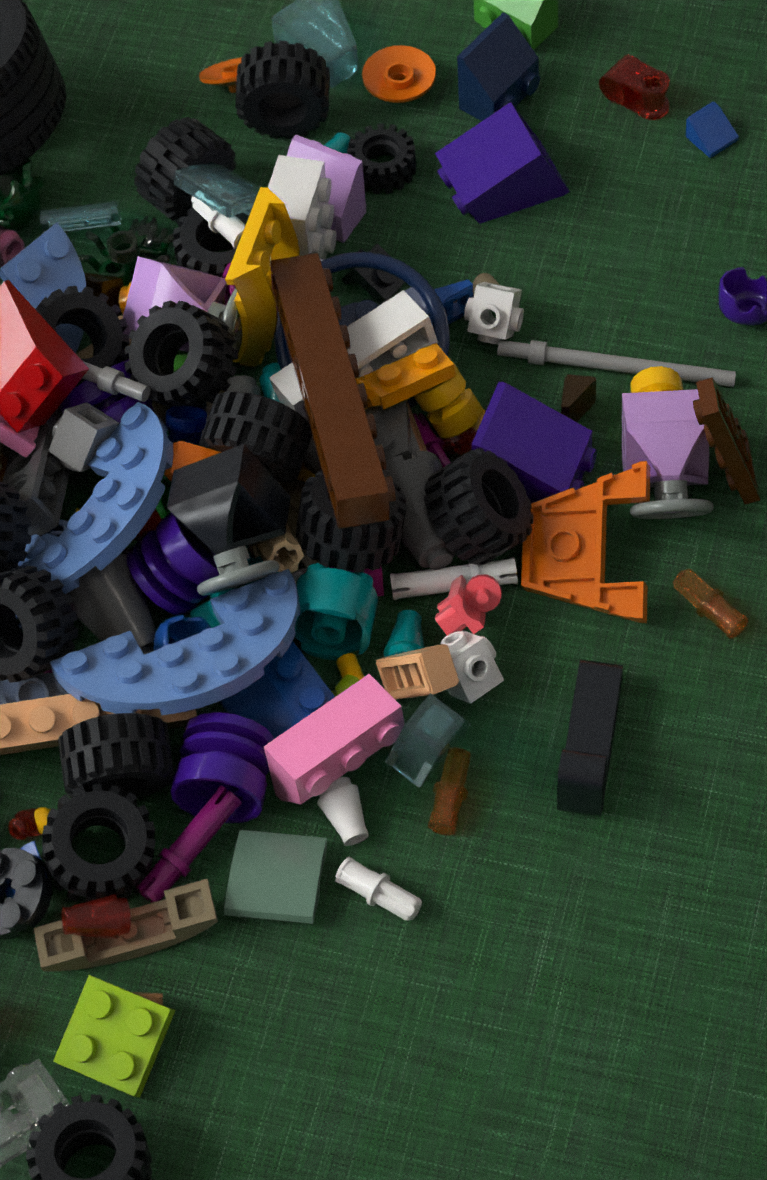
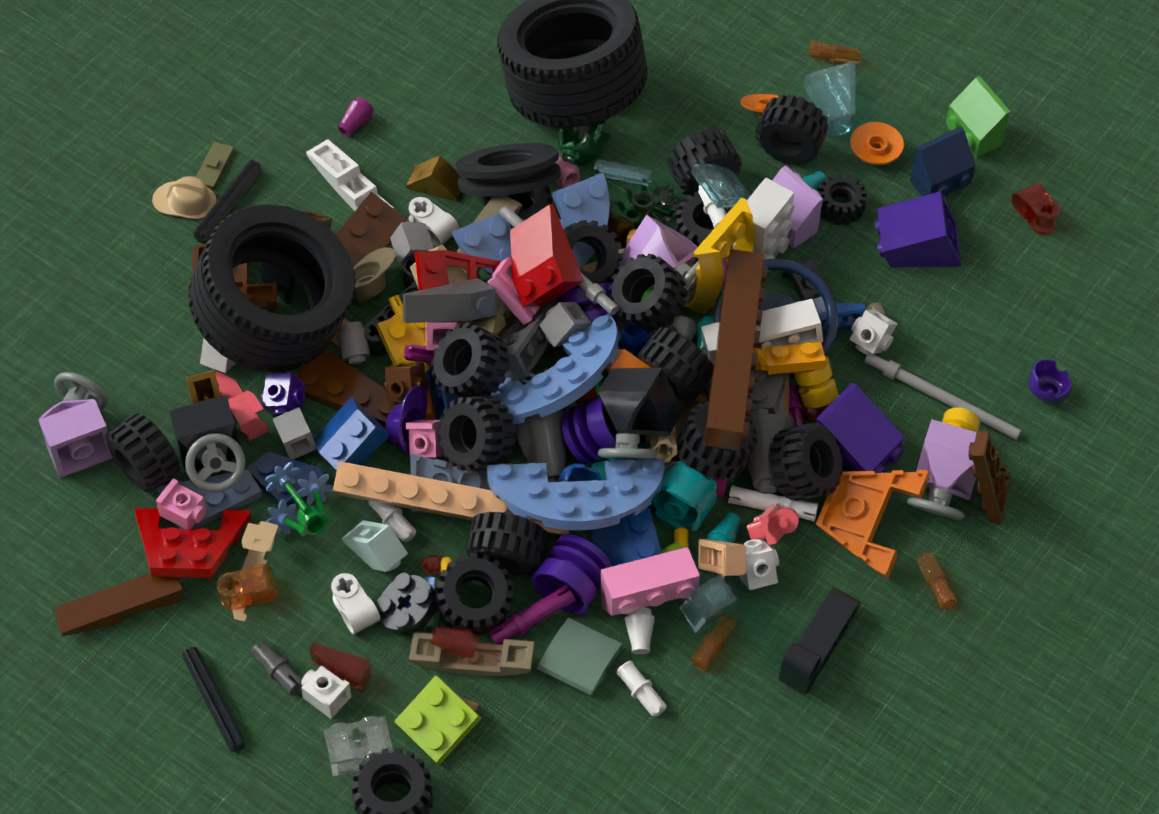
camera: 15 degrees right, 0 degrees up
(578, 396) = (905, 410): dark brown slope -> none
(710, 130) = (1075, 255): blue slope -> none

